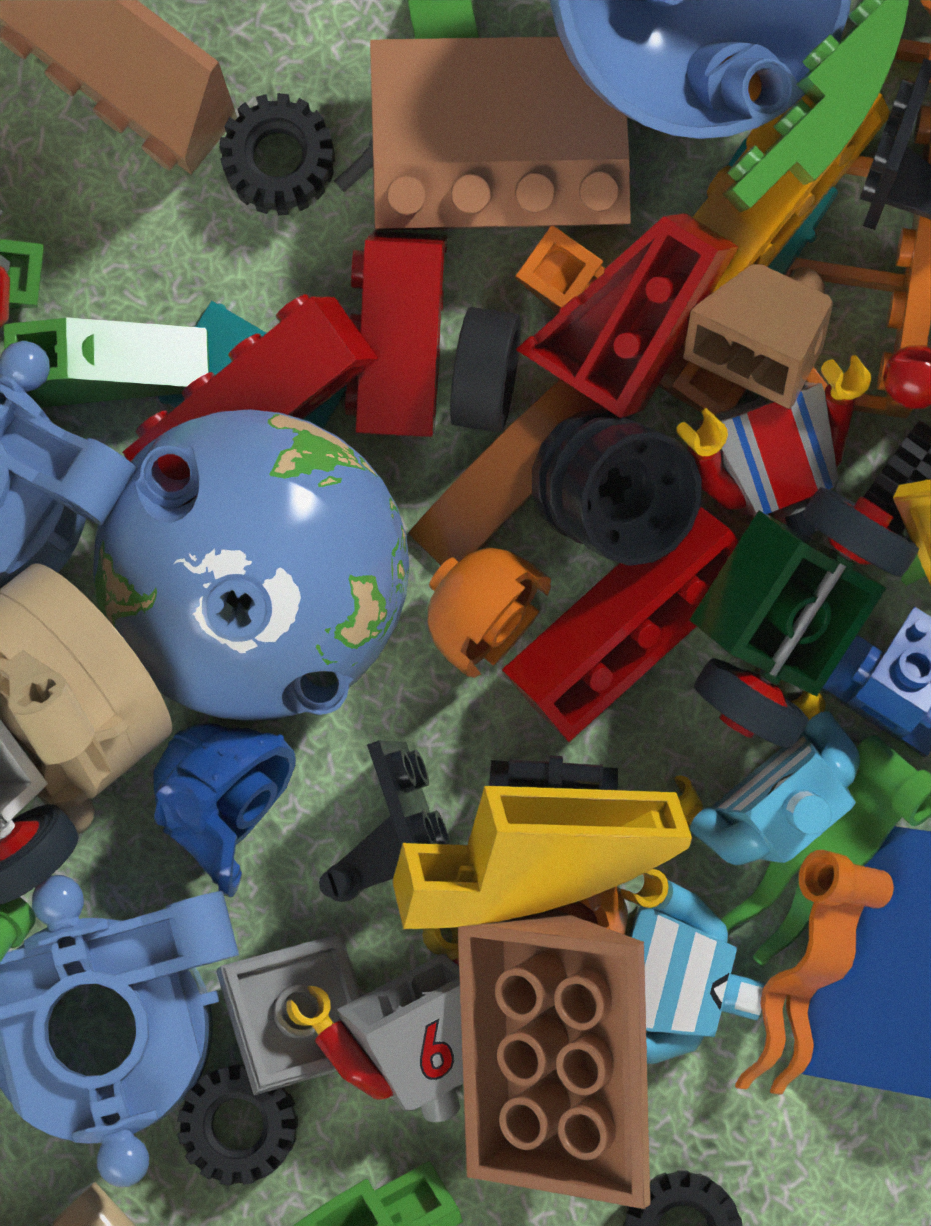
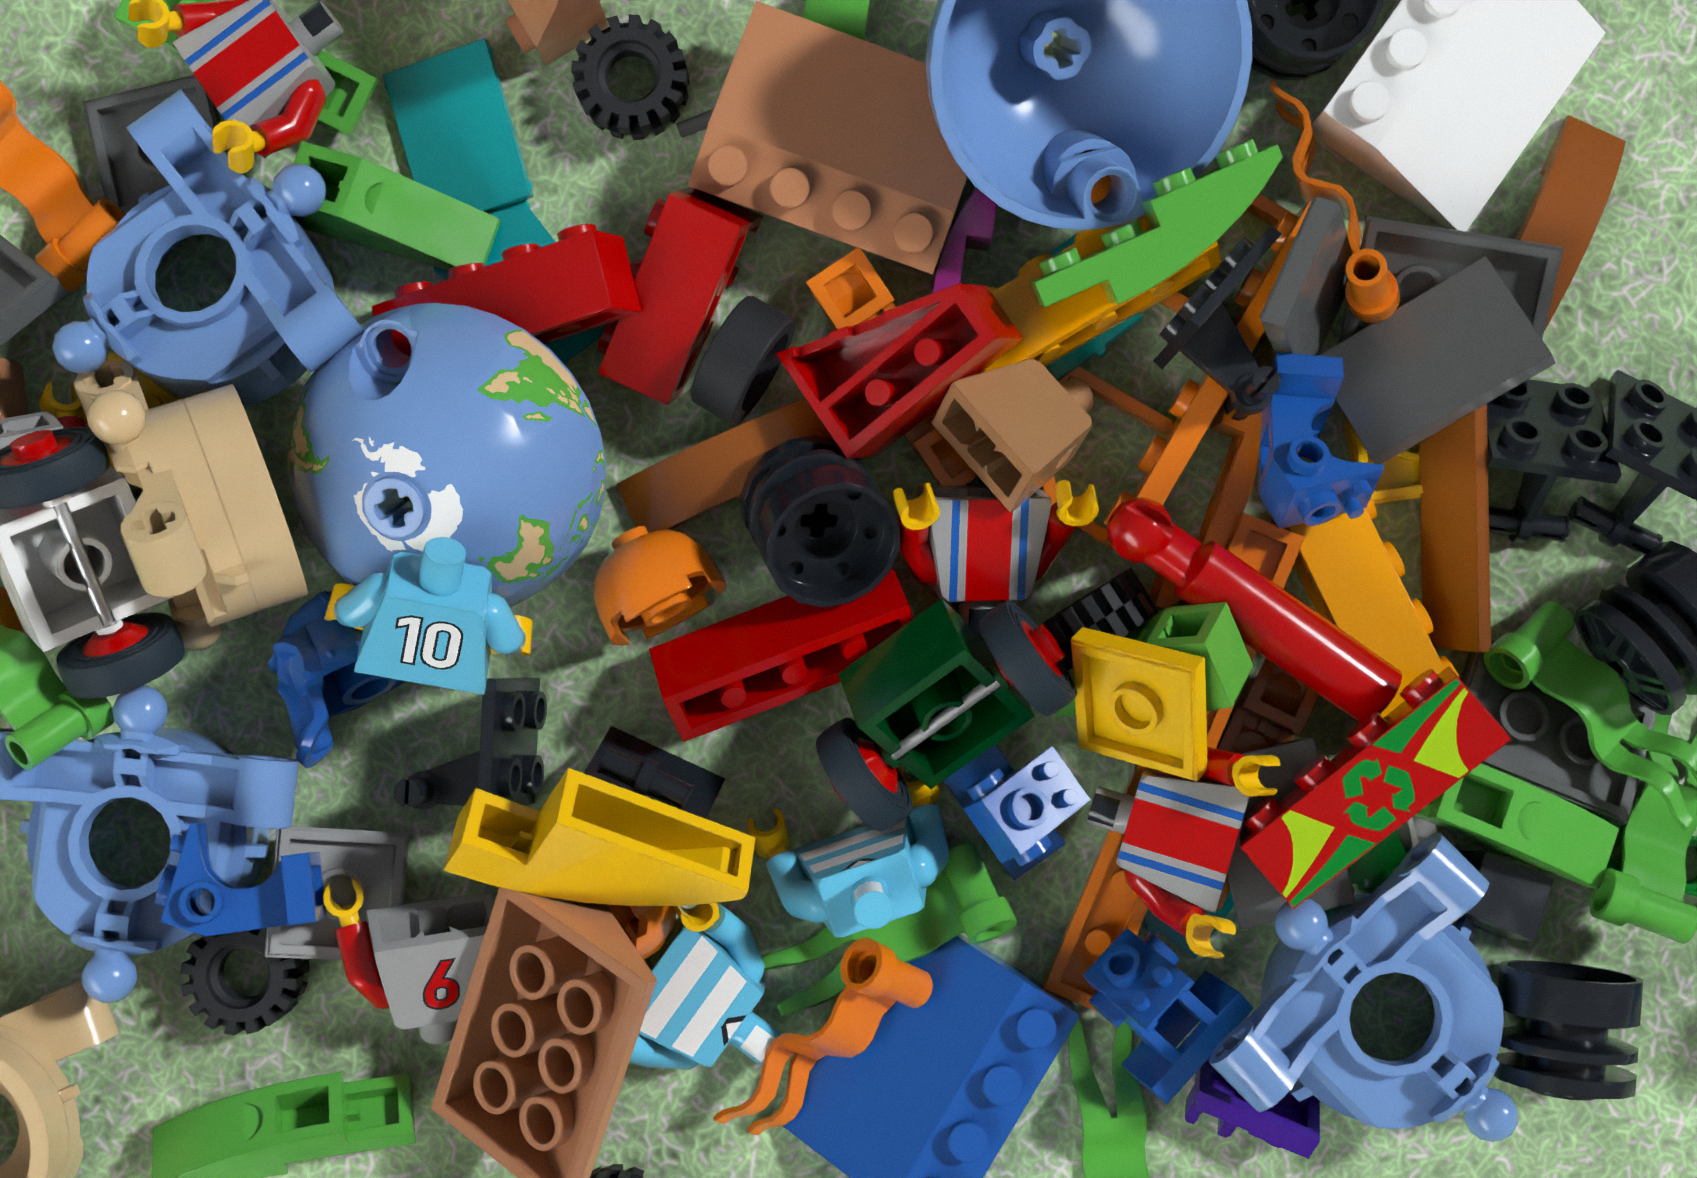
camera: 15 degrees right, 5 degrees up
(134, 260) = (459, 127): none -> teal piece
(266, 1018) = (286, 898): none -> blue tile
(299, 704) = (430, 619): none -> medium azure torso
(648, 172) = (971, 230): none -> magenta slope

